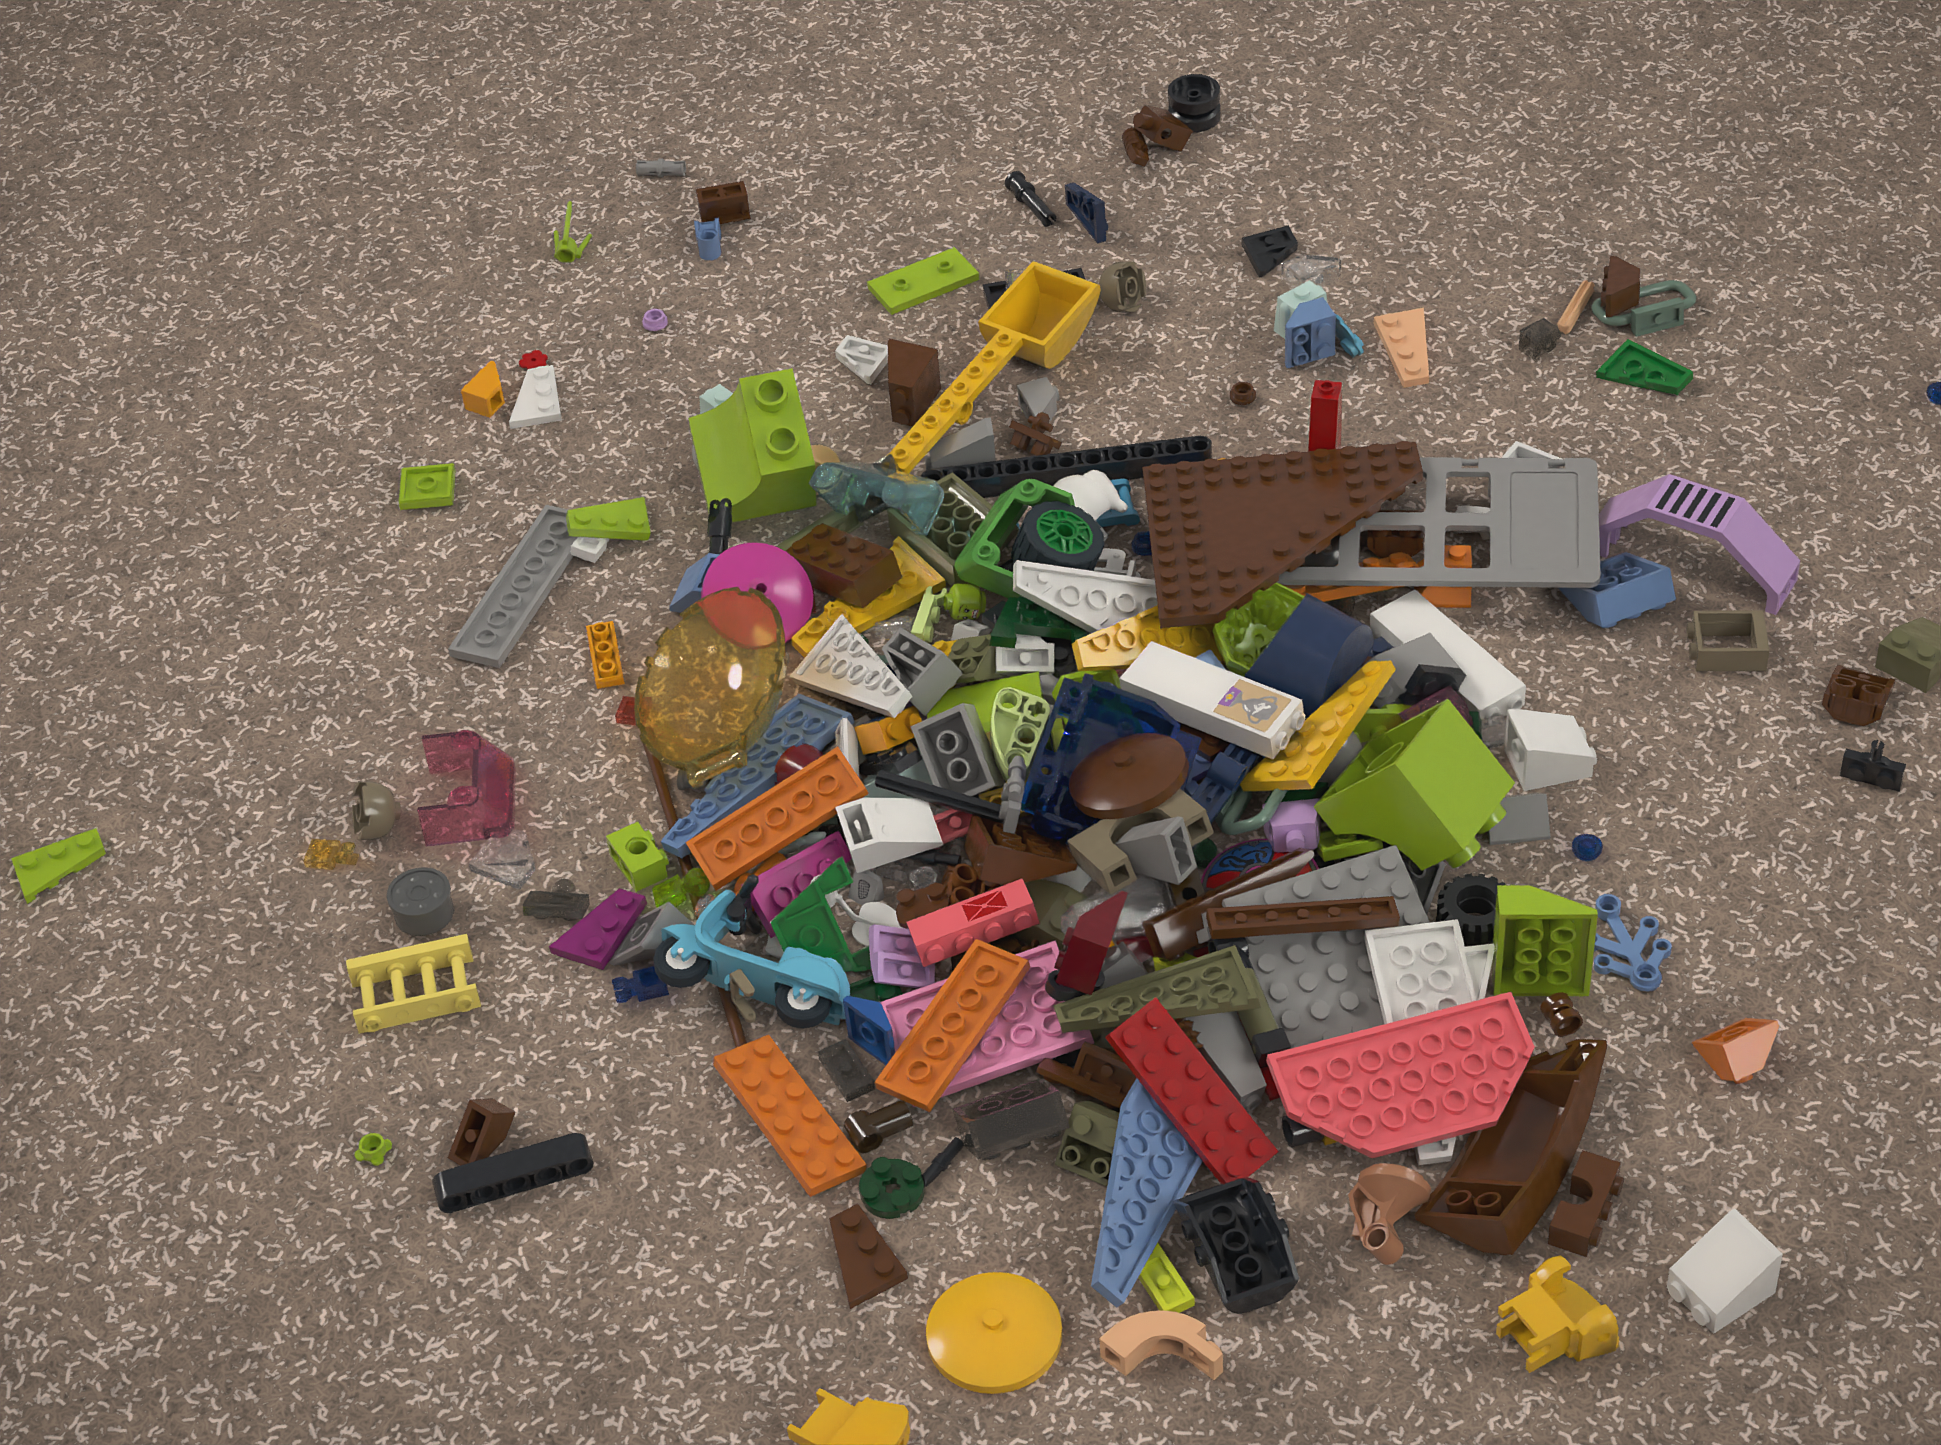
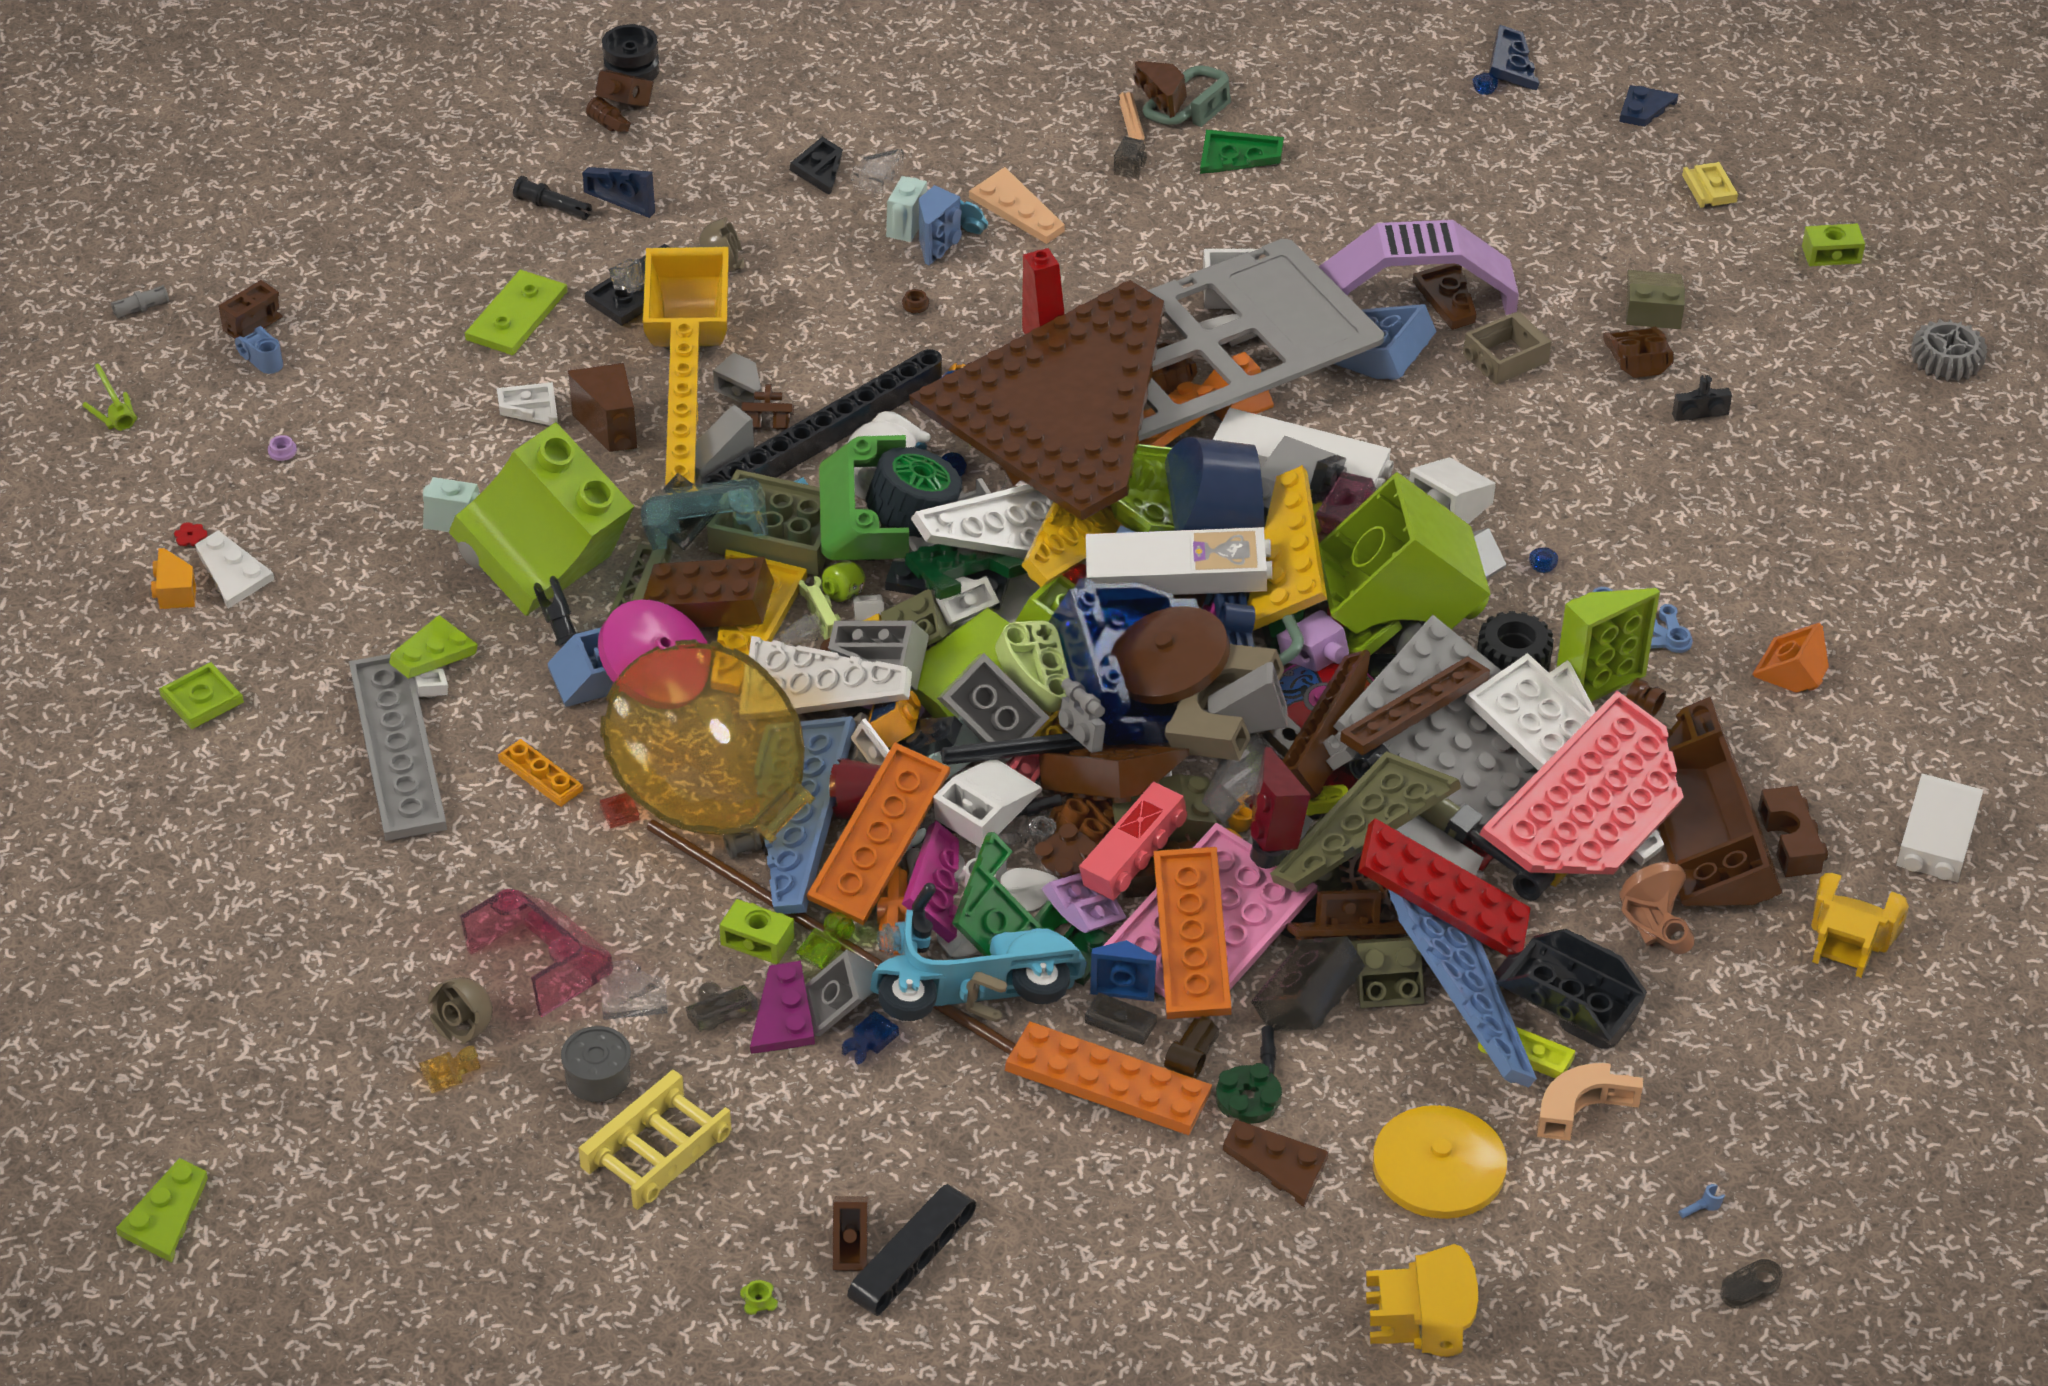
camera: 40 degrees left, 0 degrees up
(1718, 574) = (1447, 293): none -> reddish brown wing

